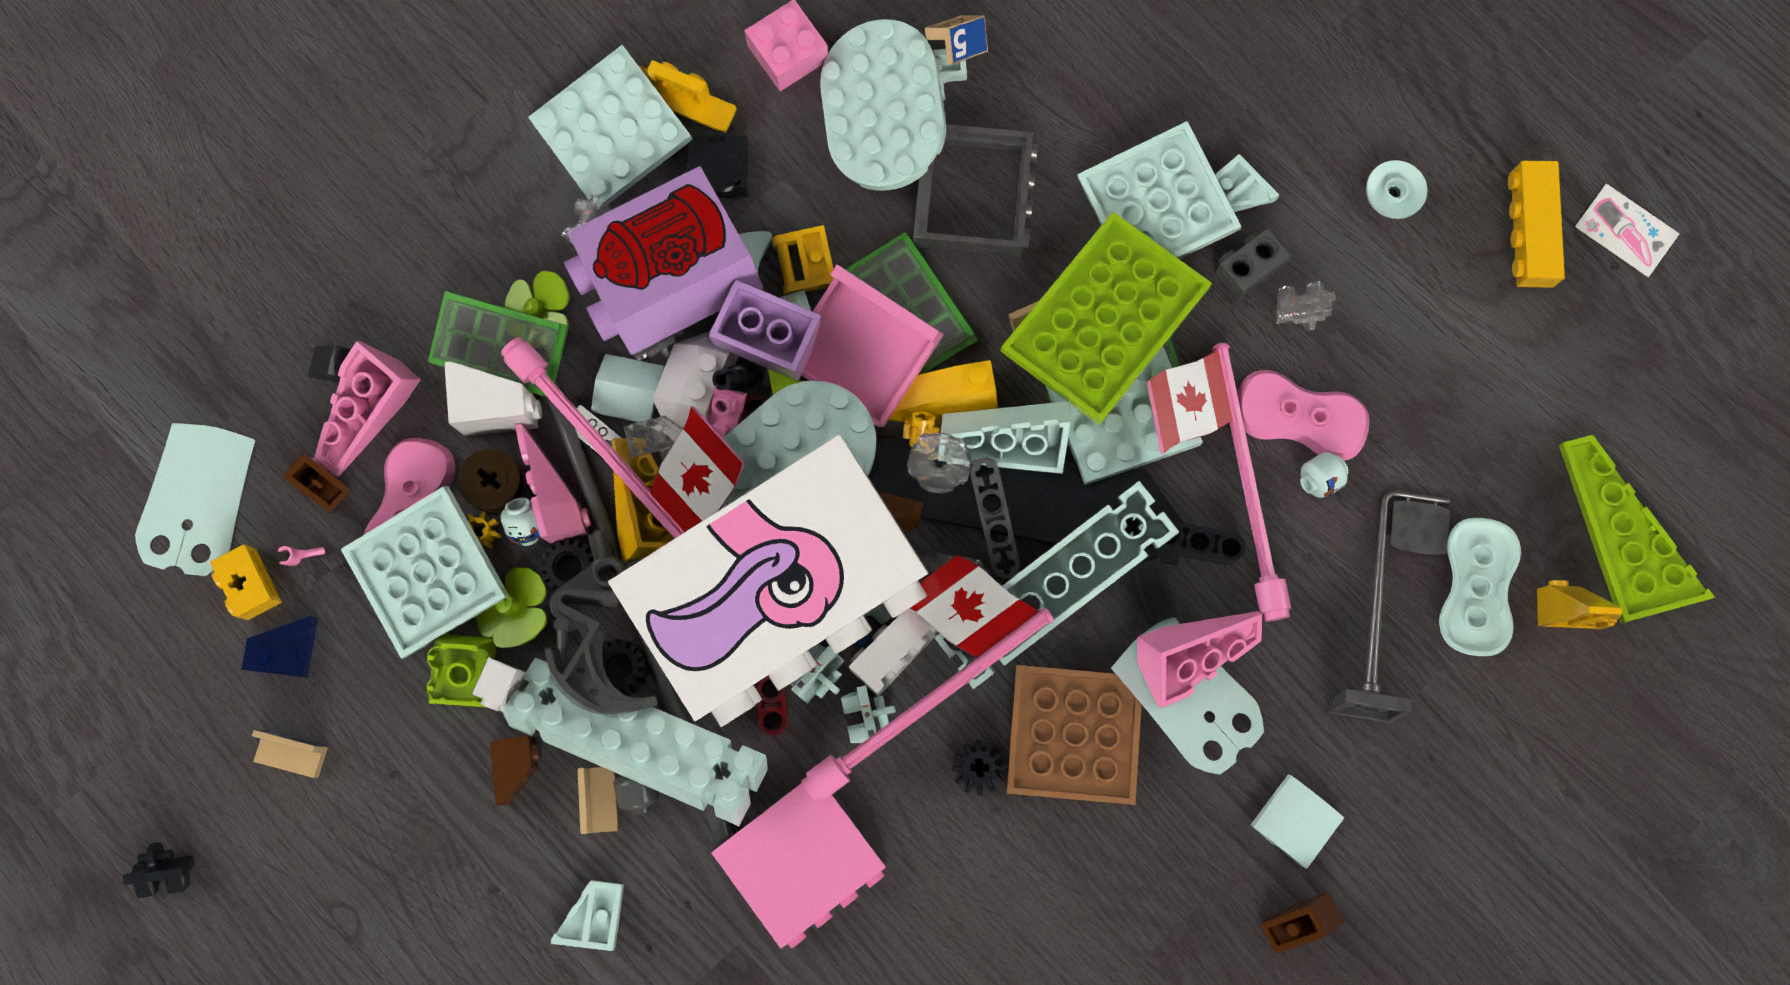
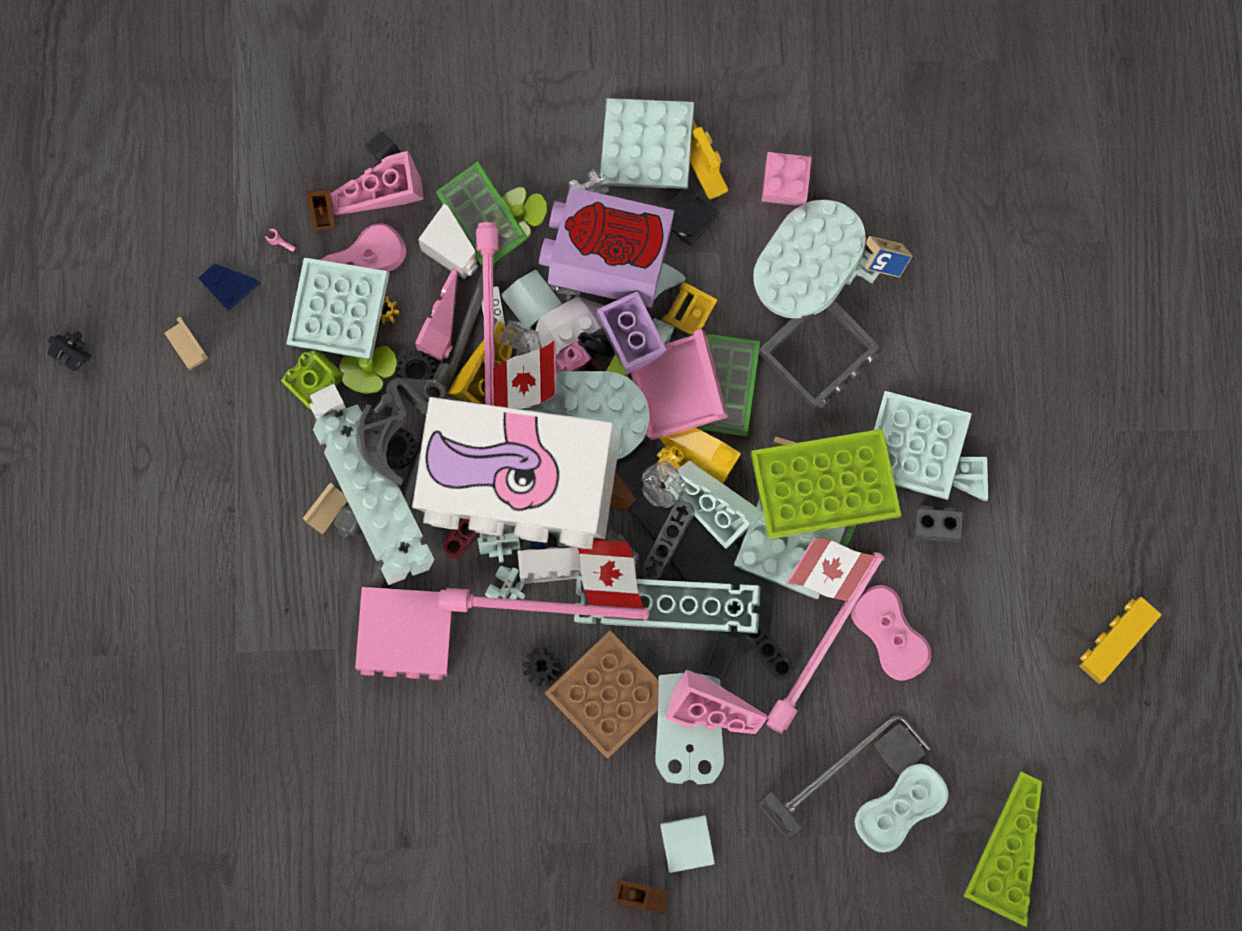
camera: 35 degrees right, 0 degrees up
(196, 481) = (257, 153): light aqua piece -> none
(258, 589) = (241, 243): yellow brick -> none
(502, 469) = (403, 289): dark brown piece -> none
(513, 766) = (297, 452): reddish brown slope -> none
(520, 522) = (411, 324): light aqua head -> none
(593, 918) = (271, 568): light aqua wing -> none
(1304, 308) = (946, 575): clear hips -> none
(1324, 475) = (870, 674): light aqua head -> none
(1403, 179) = (1069, 549): light aqua dish -> none
(1574, 607) = (940, 862): yellow wedge -> none
(1627, 230) = (1173, 689): white sticker -> none

